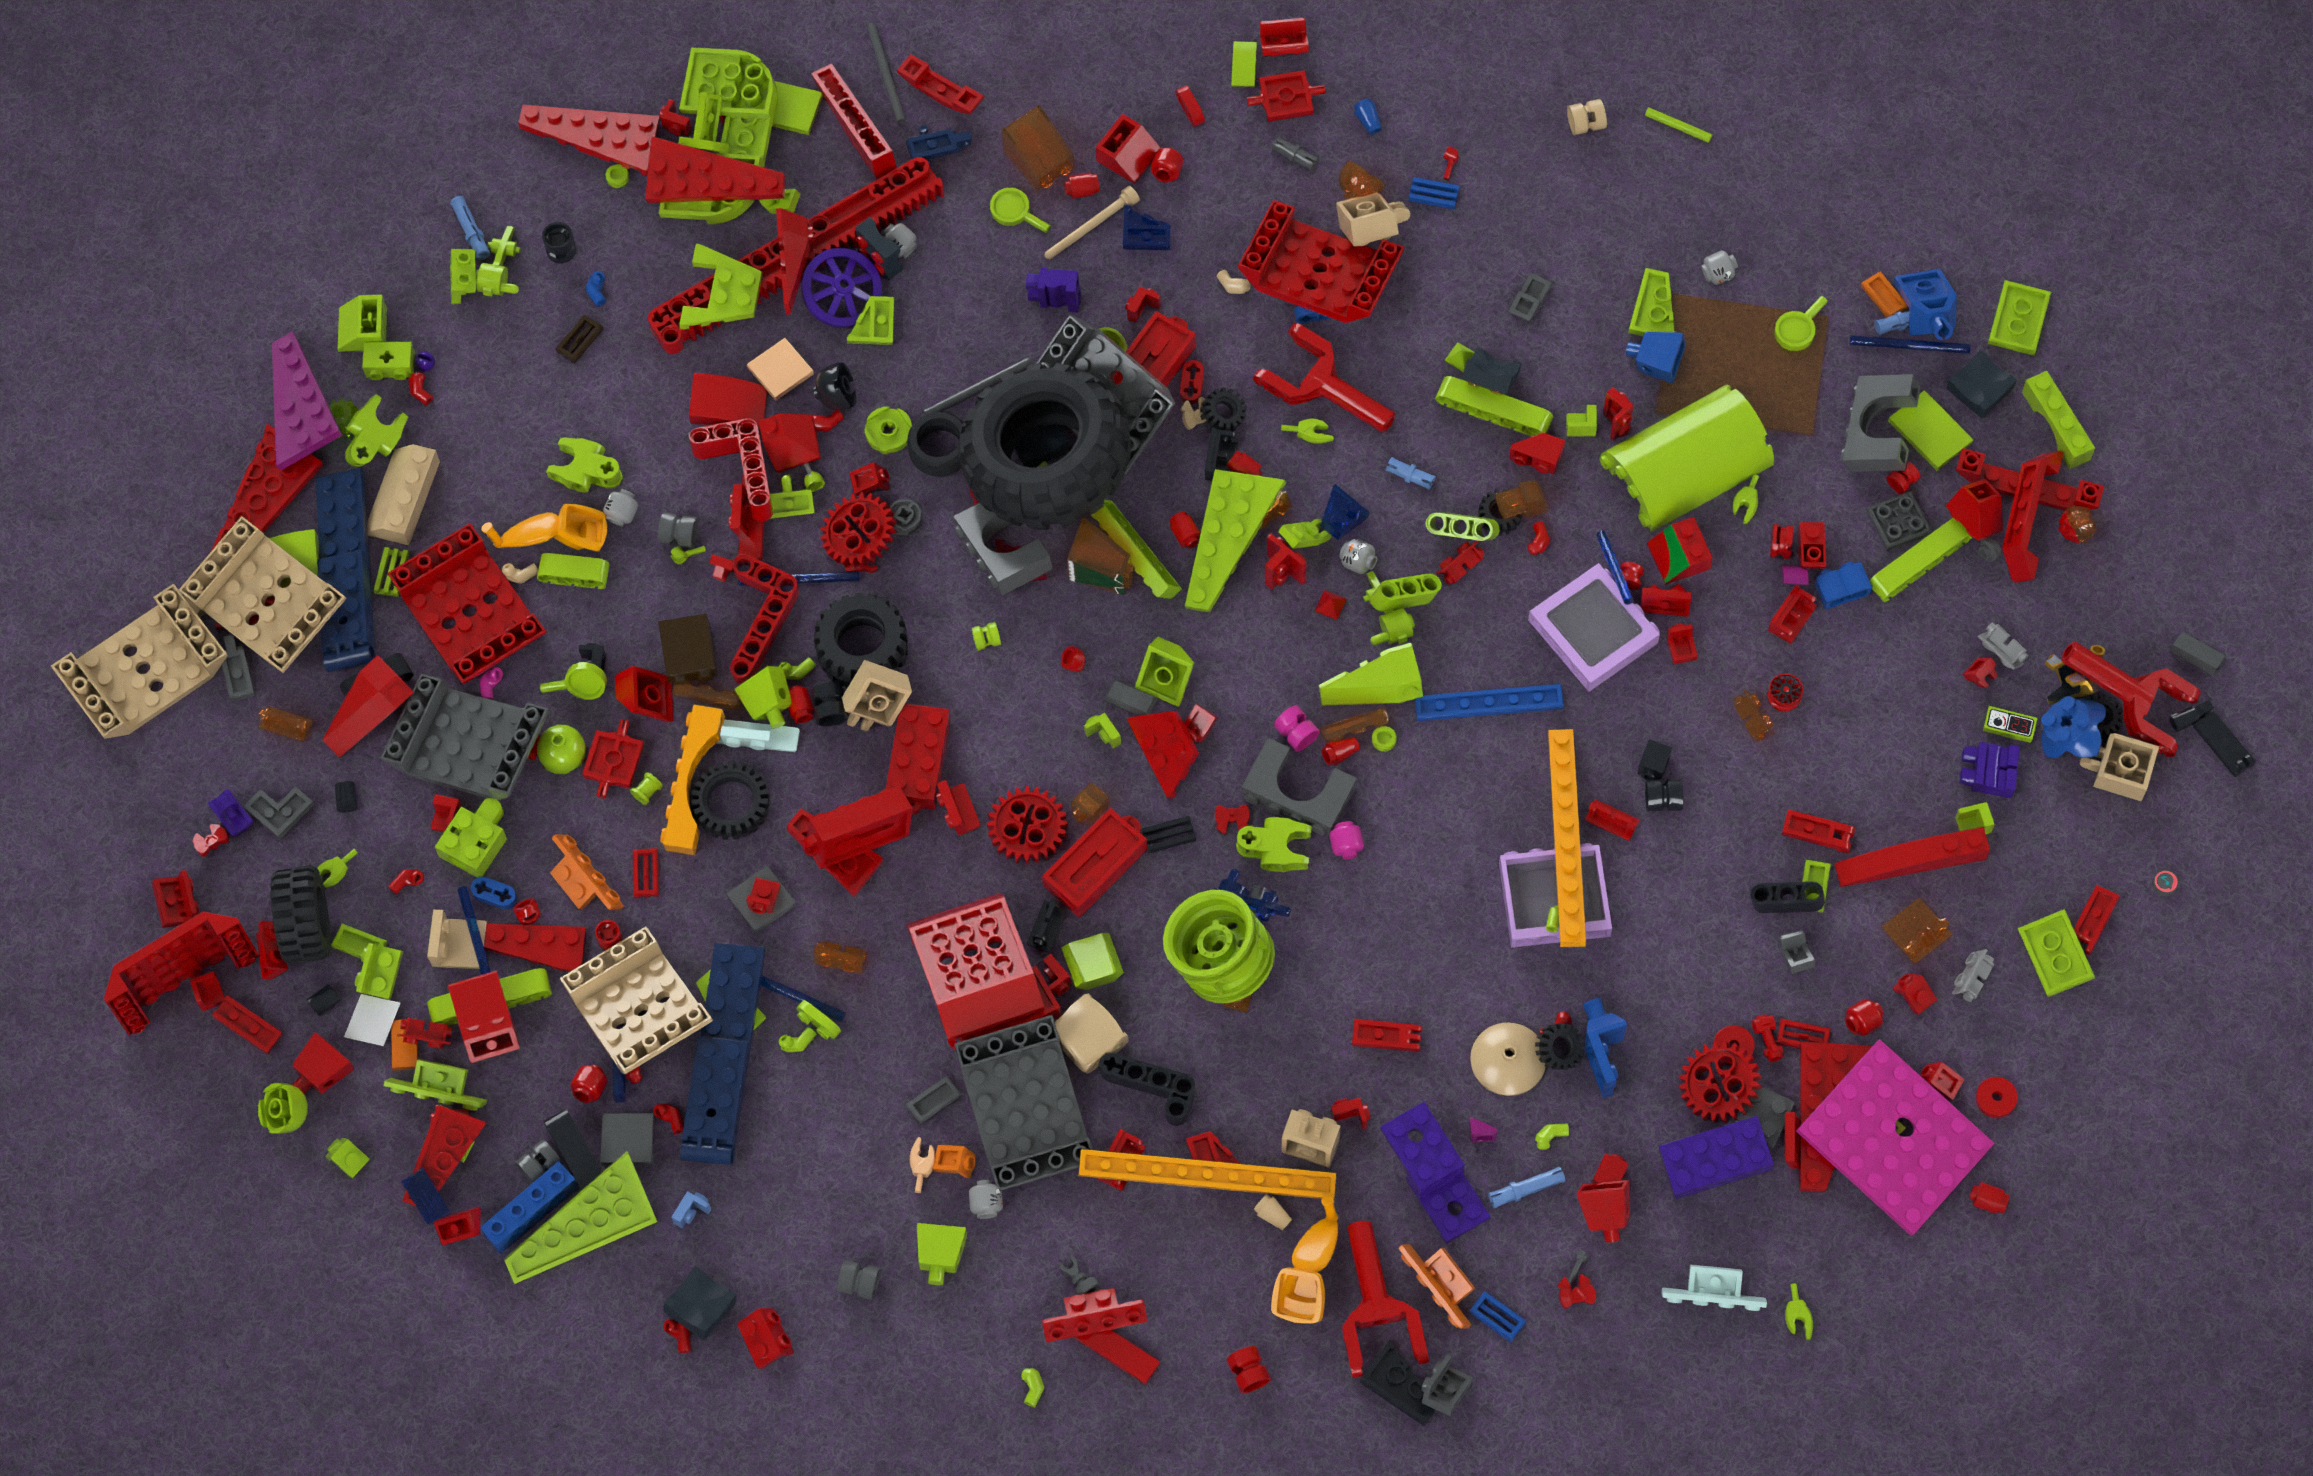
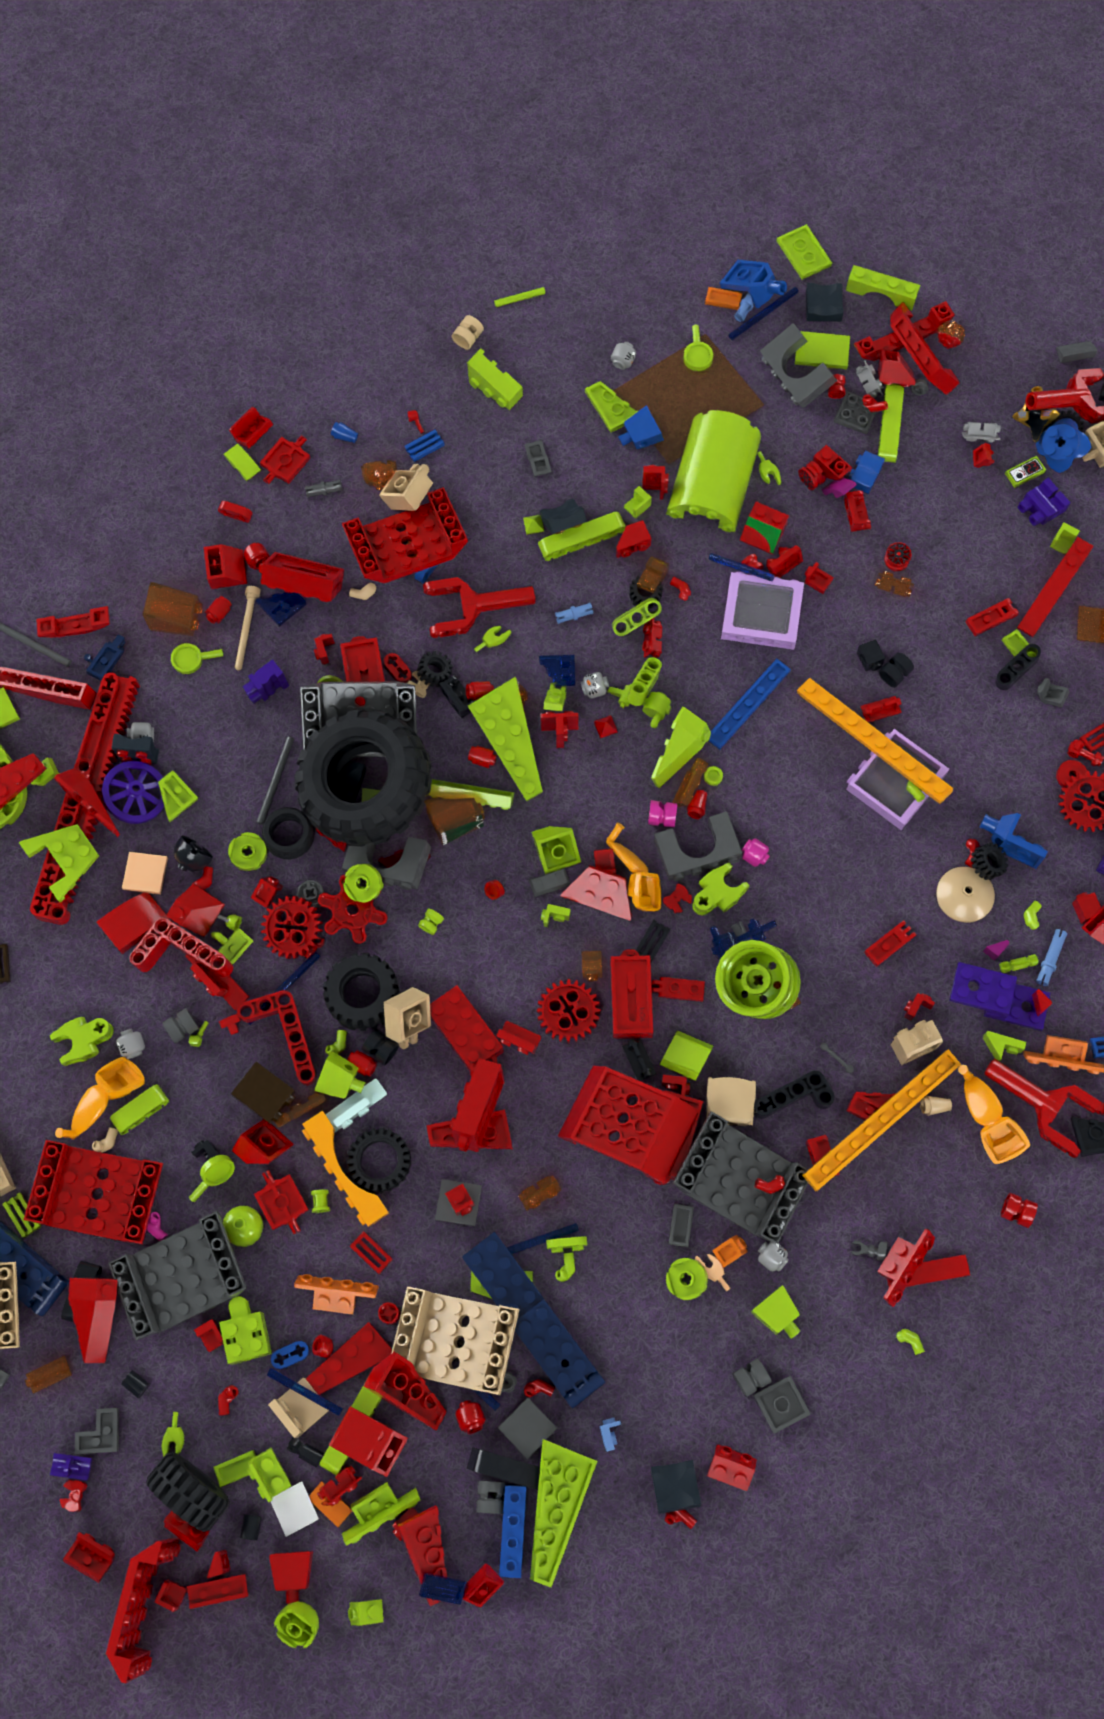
camera: 45 degrees left, 5 degrees up
(268, 1001) = (219, 1564): none -> red slope
(427, 982) = (305, 1451): none -> black bar
(556, 1000) = (402, 1386): none -> red wedge
(645, 1080) = (512, 1382): none -> dark grey plate
(862, 1328) = (781, 1404): none -> dark grey plate
(899, 1155) = (681, 1289): none -> lime plate
(923, 546) = (341, 917): none -> red plate
(967, 550) = (352, 881): none -> lime plate
(1045, 1137) = (772, 1186): none -> red arm
(1148, 898) = (679, 989): none -> red hinge
(1186, 219) = (301, 576): none -> red piece
(1208, 778) = (642, 886): none -> light orange piece
(1229, 1110) = (849, 1068): none -> dark grey hinge
(1391, 1213) = (998, 1042): none -> lime slope
(1465, 1213) = (1040, 1001): none -> red slope
(1489, 1164) = (1019, 963): none -> lime axle
(1561, 185) = (492, 381): none -> lime wedge
(1916, 524) = (872, 405): none -> red arm
(1946, 490) = (867, 374): none -> light grey hinge

